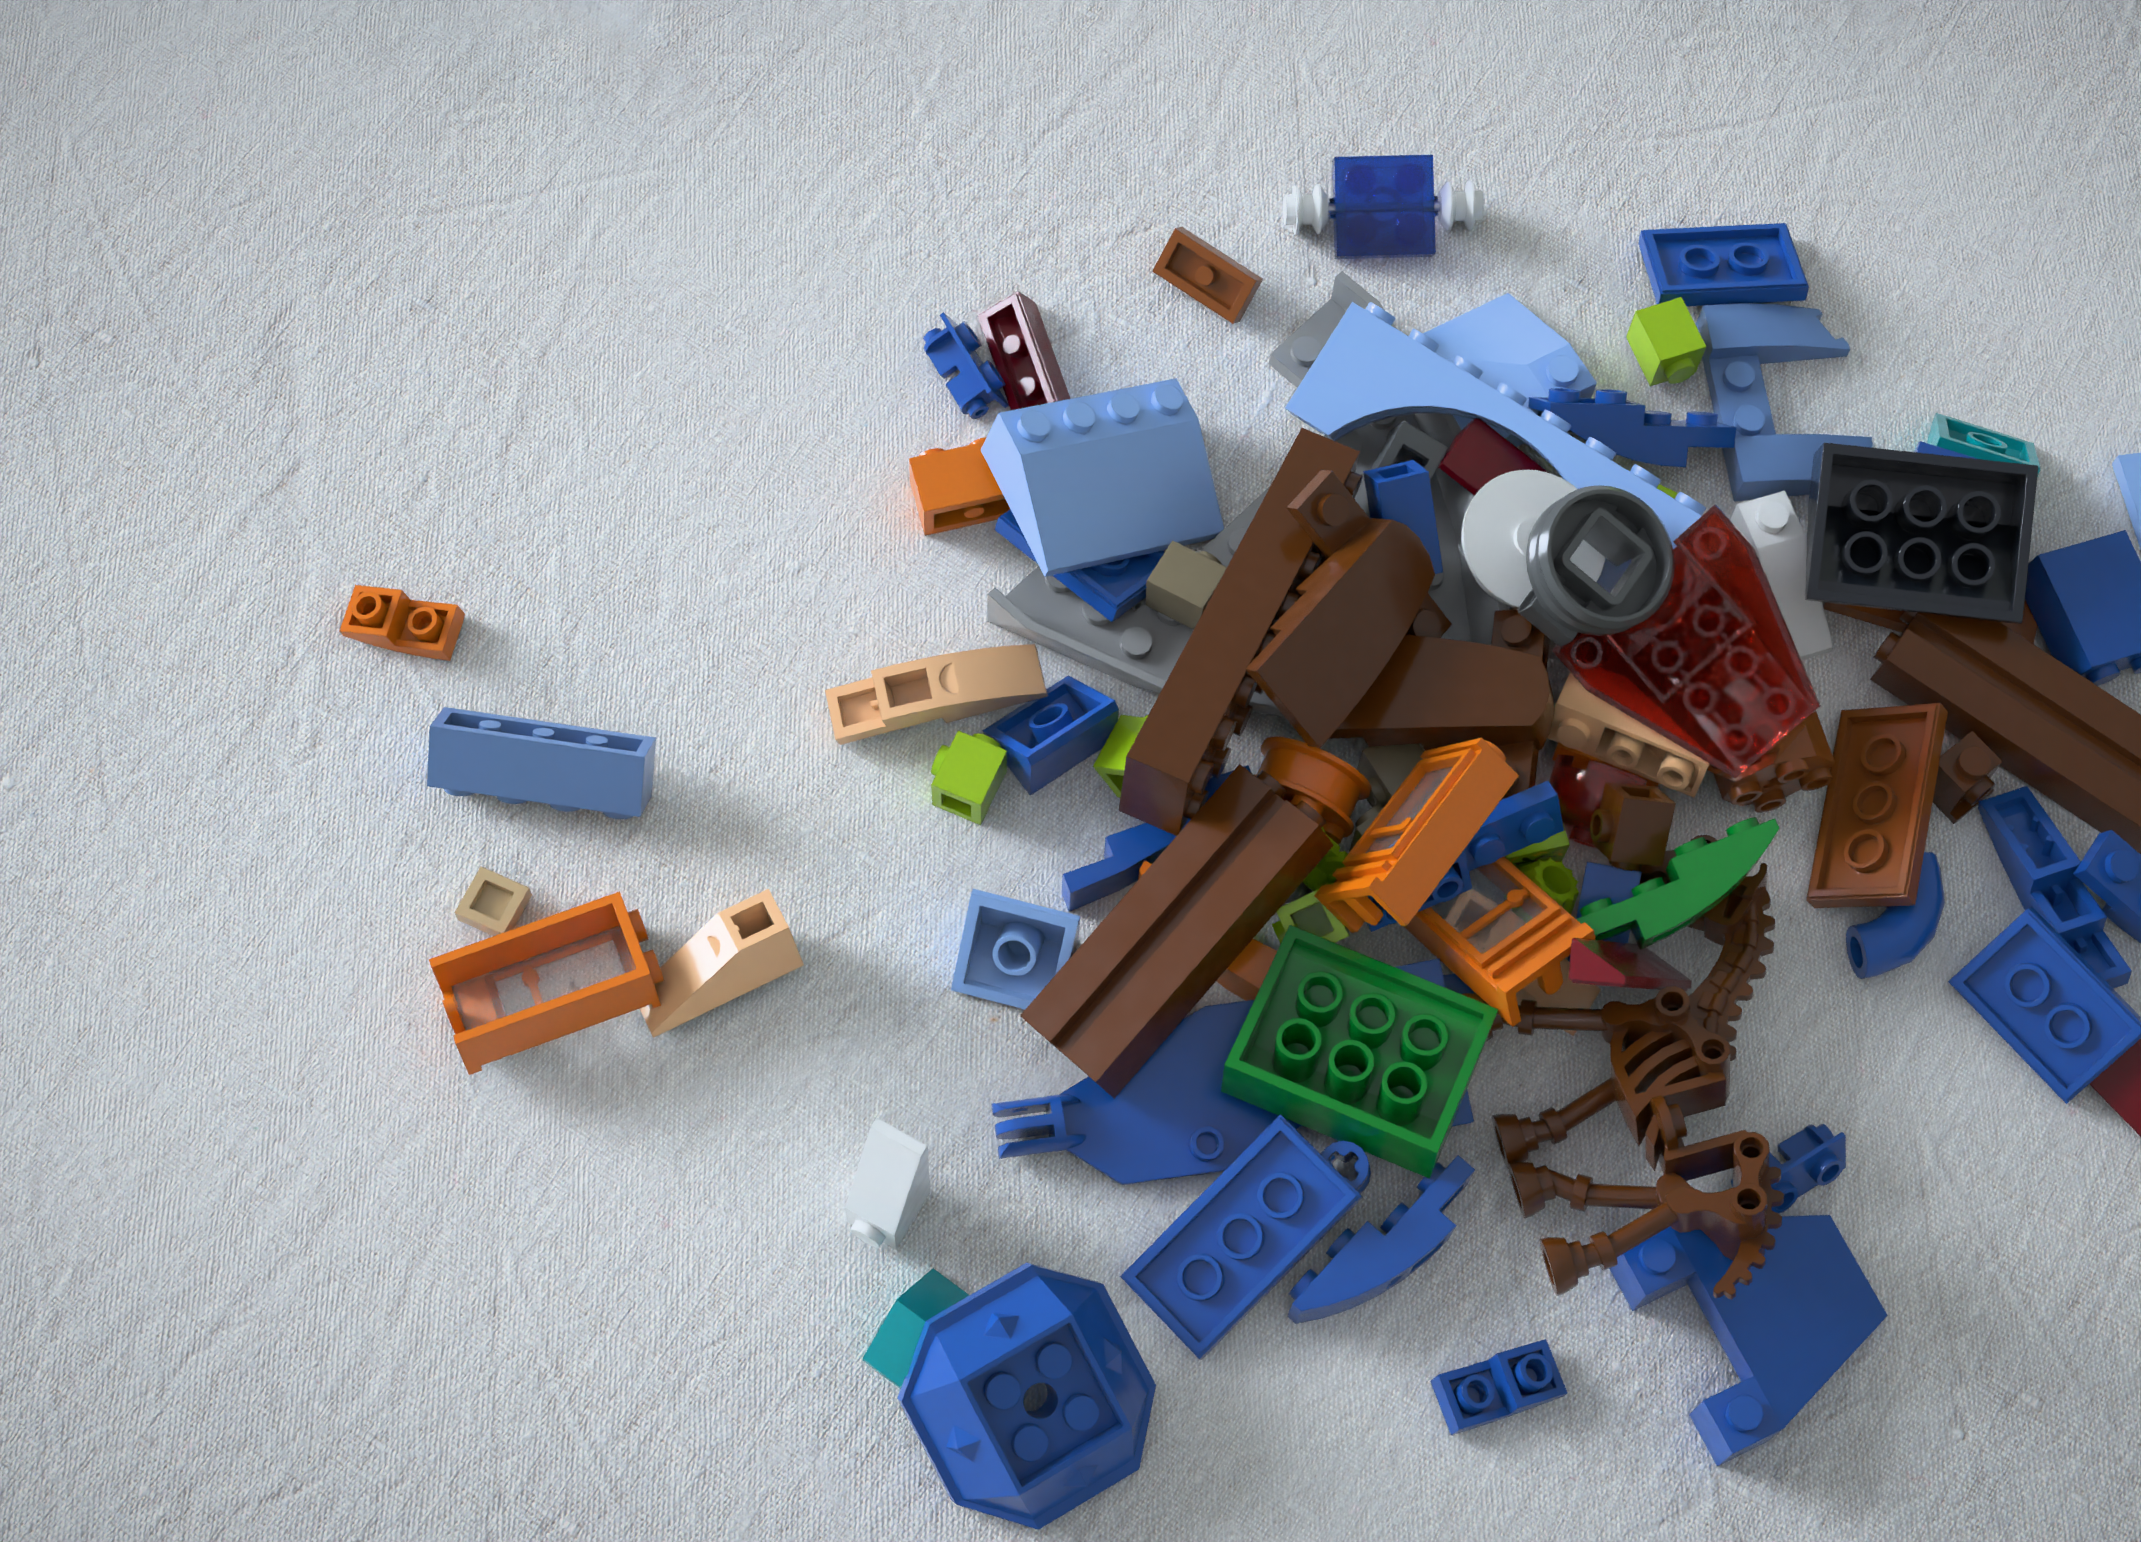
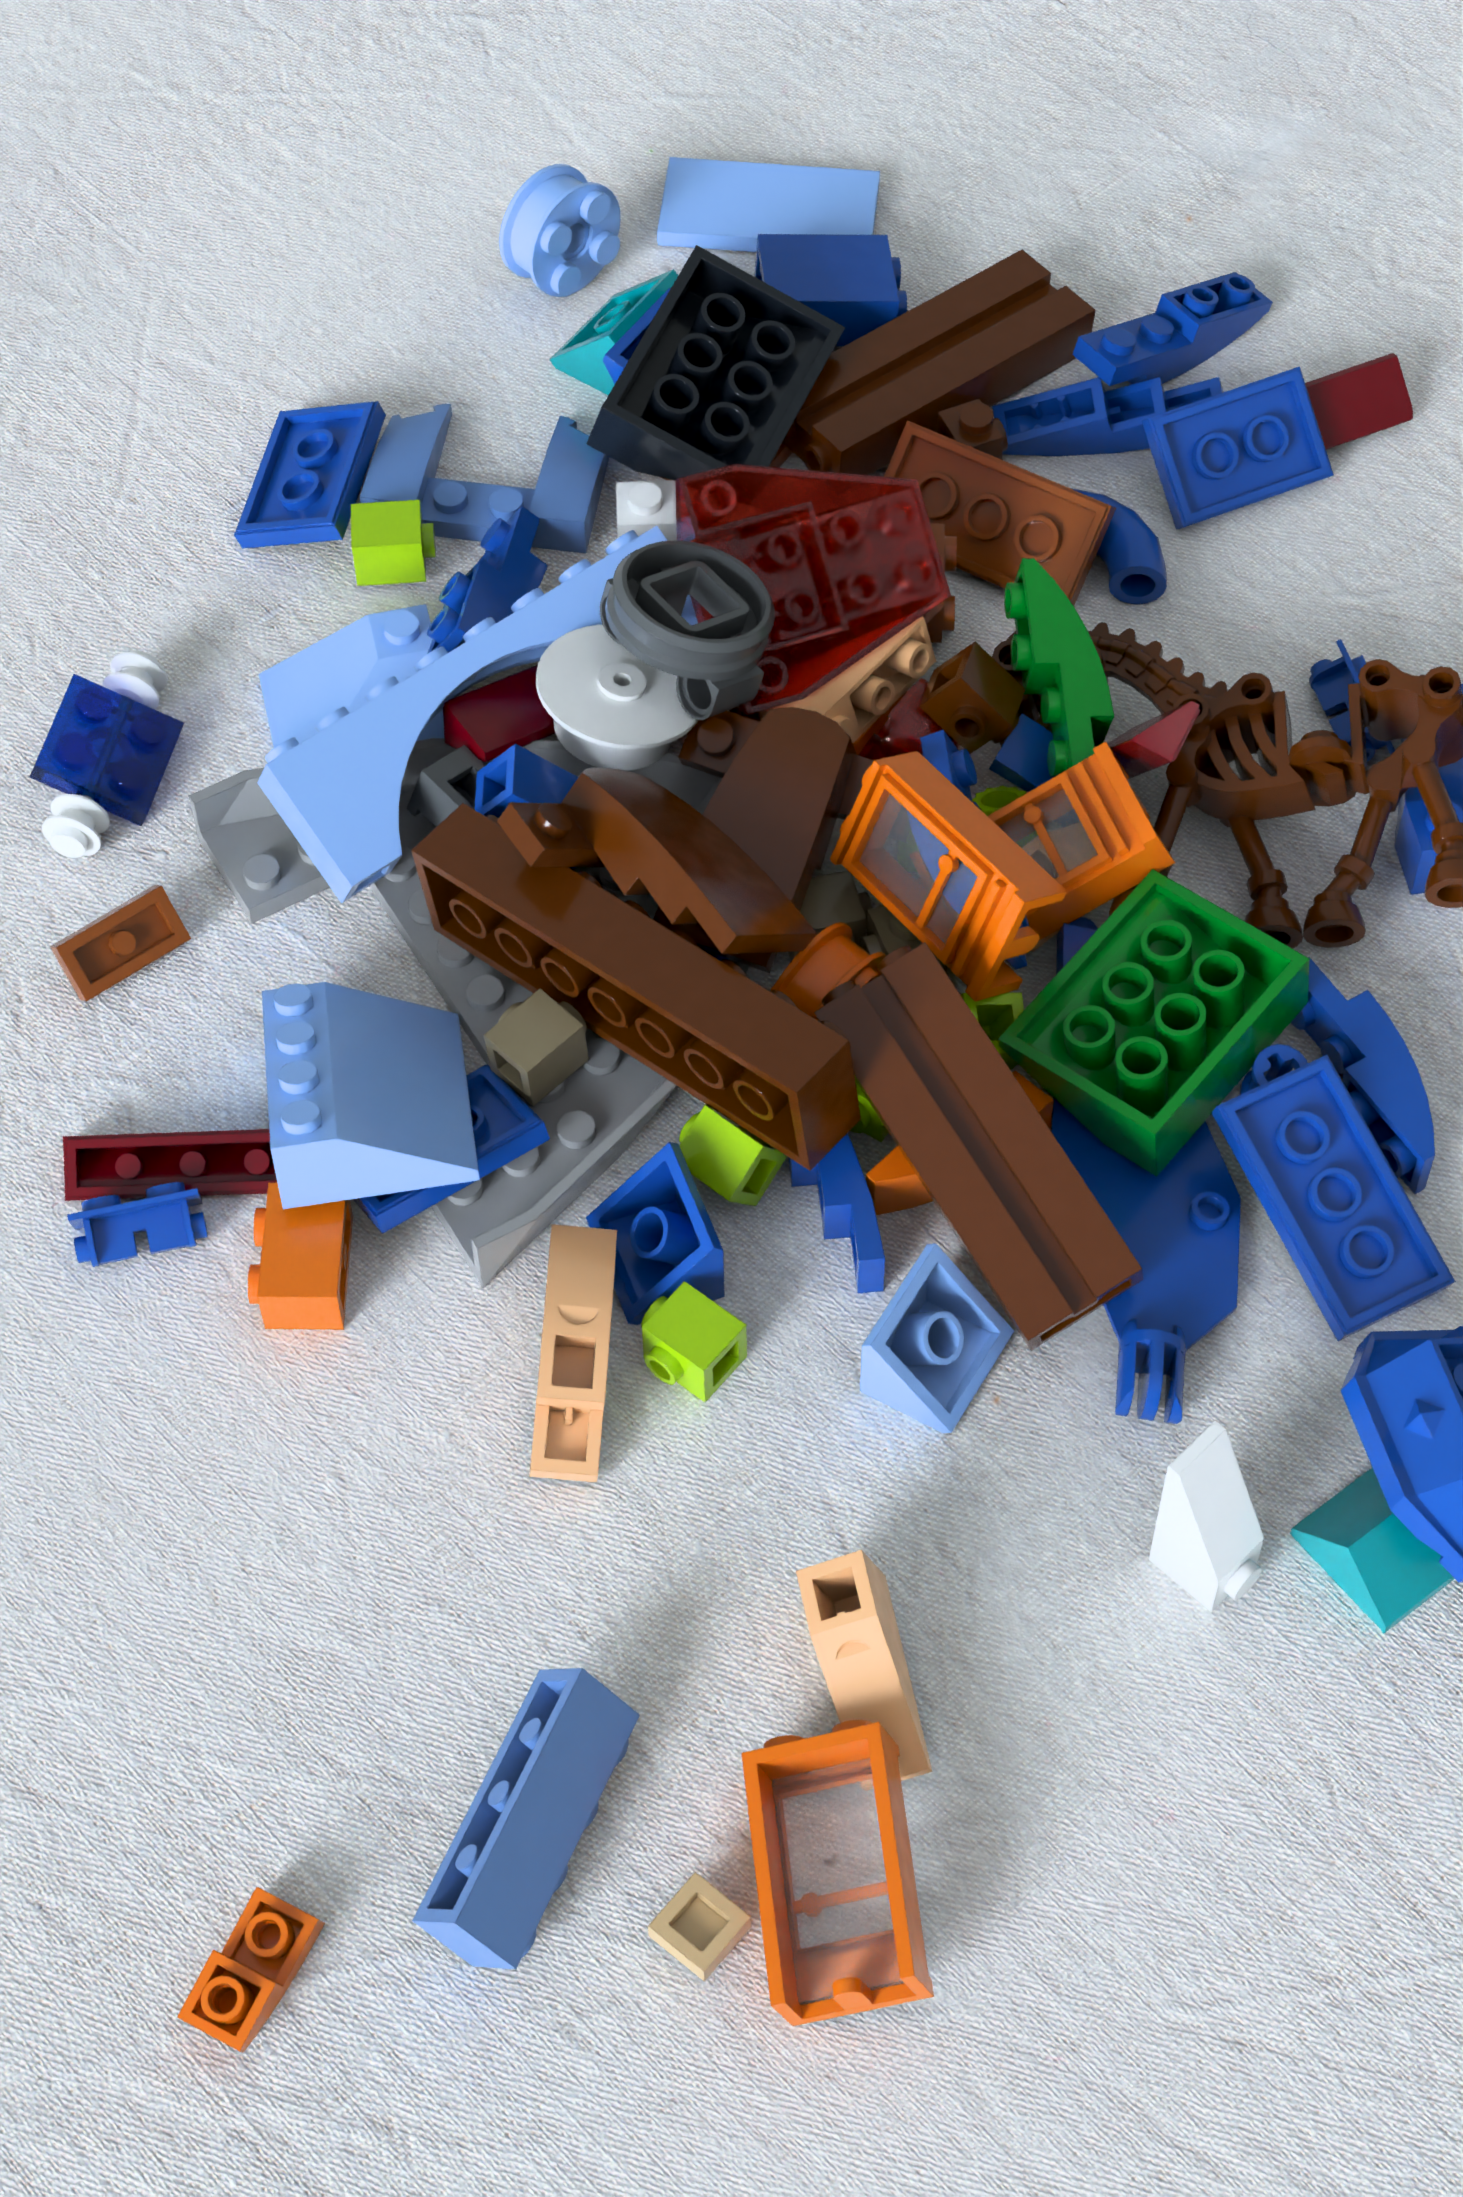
camera: 70 degrees left, 10 degrees down
(2062, 370) = (560, 230): none -> light blue wheel

